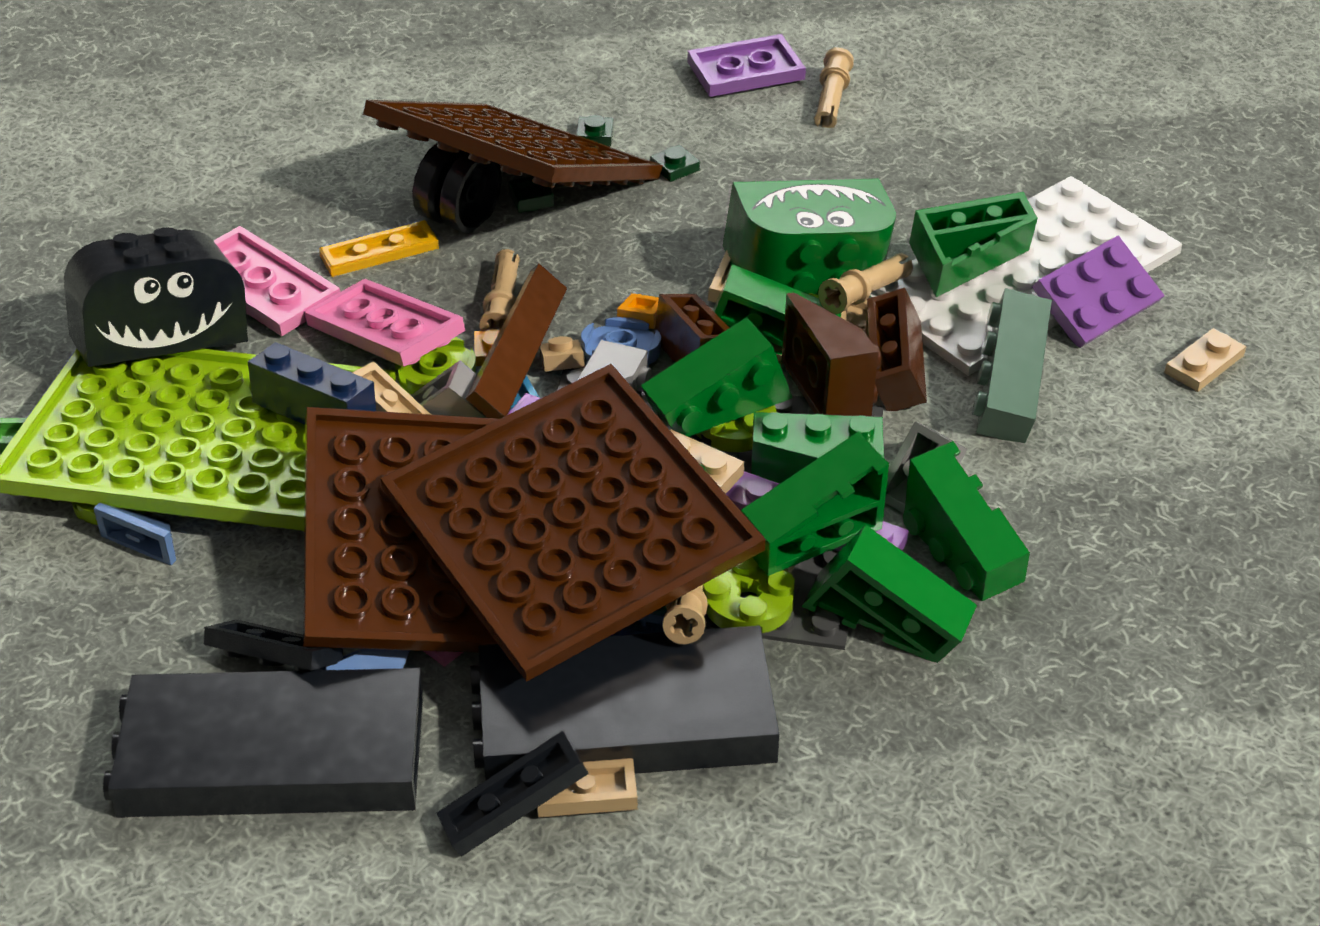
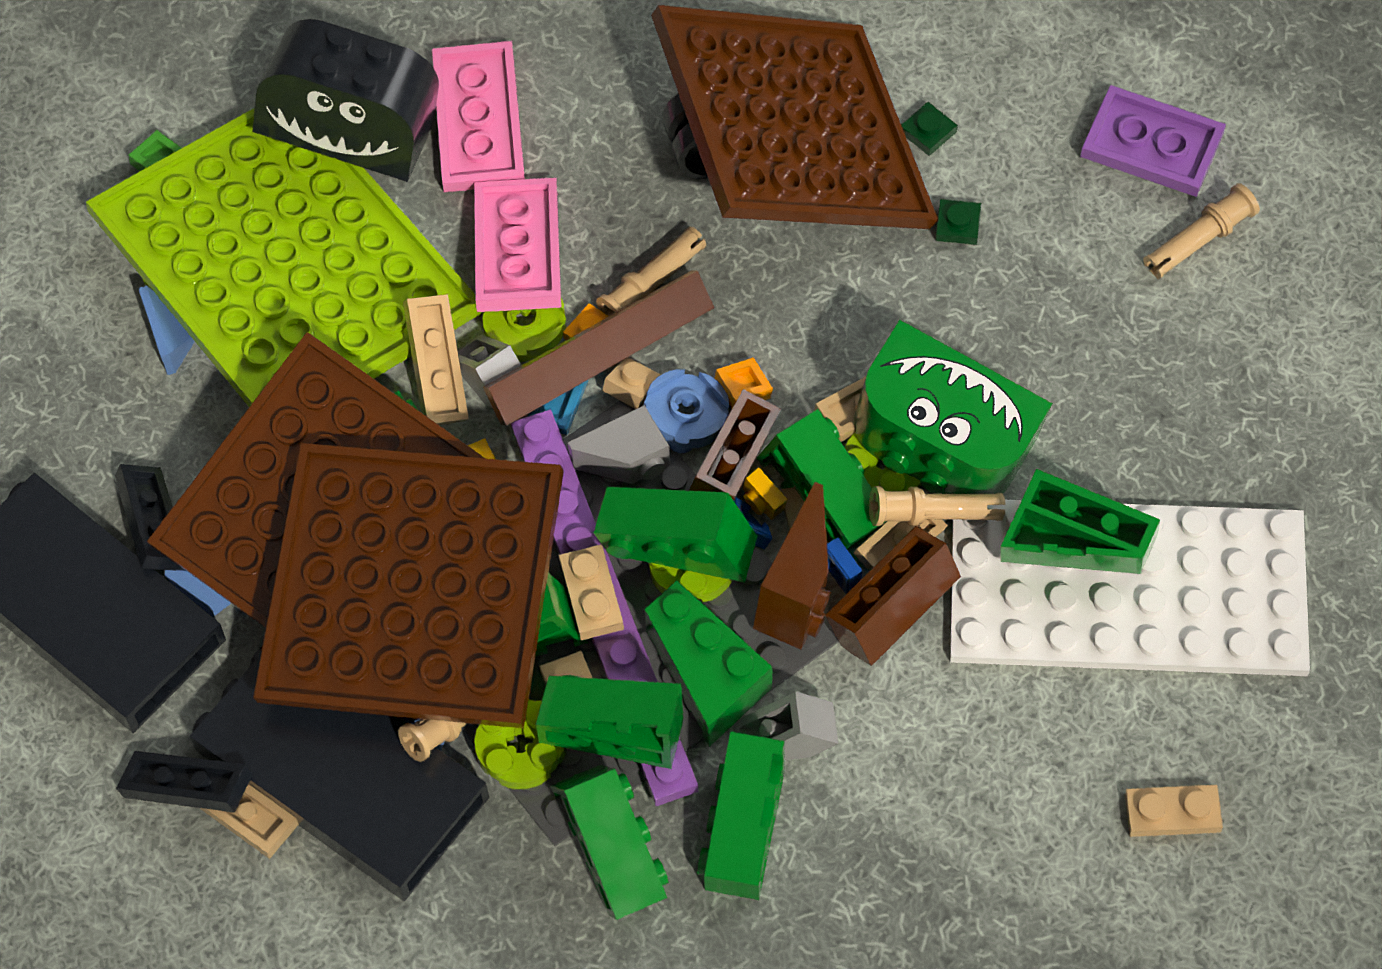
camera: 45 degrees right, 20 degrees up
(292, 381) = (375, 293): dark blue brick -> none
(378, 248) = (609, 144): yellow tile -> none
(1013, 366) = (972, 689): sand green brick -> none
(1098, 291) = (1153, 667): medium lavender plate -> none

